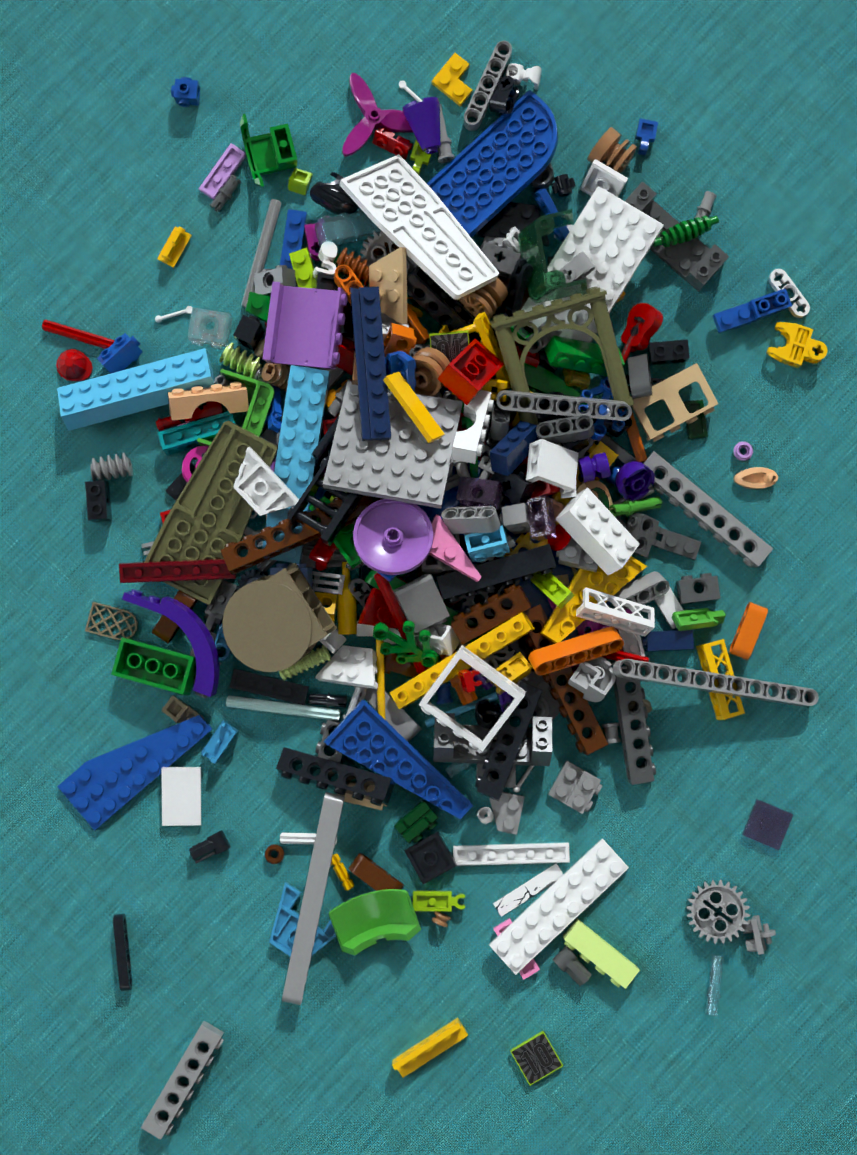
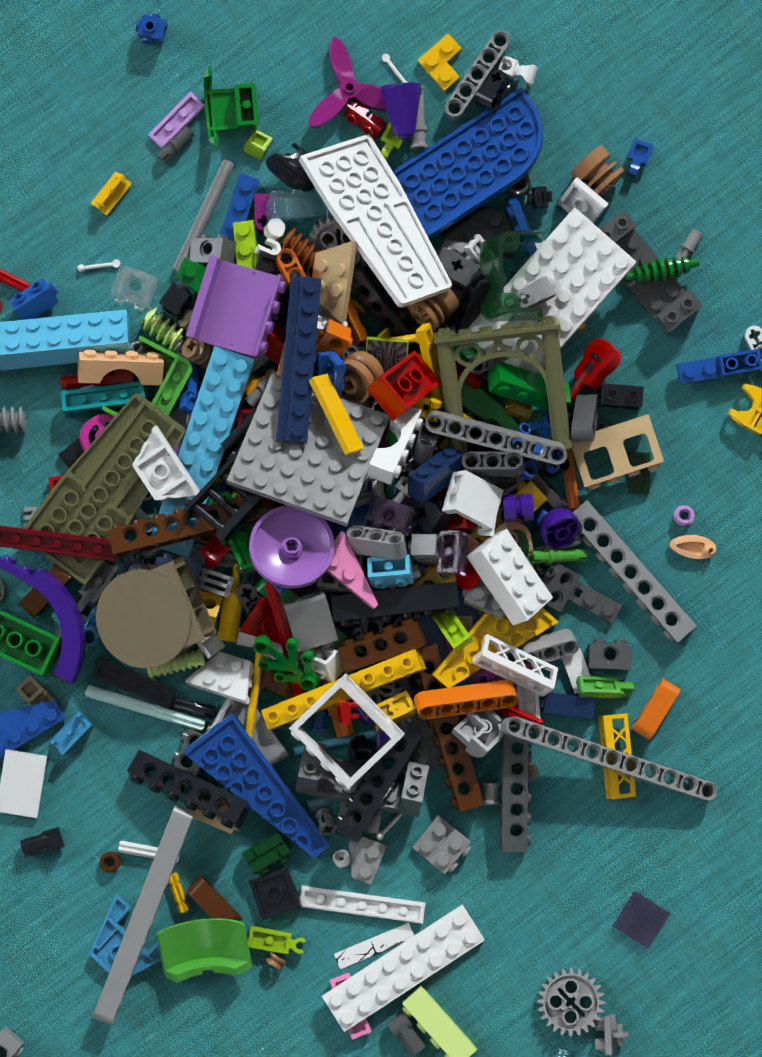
camera: 10 degrees right, 0 degrees up
(465, 784) = (325, 822): none -> dark grey bush

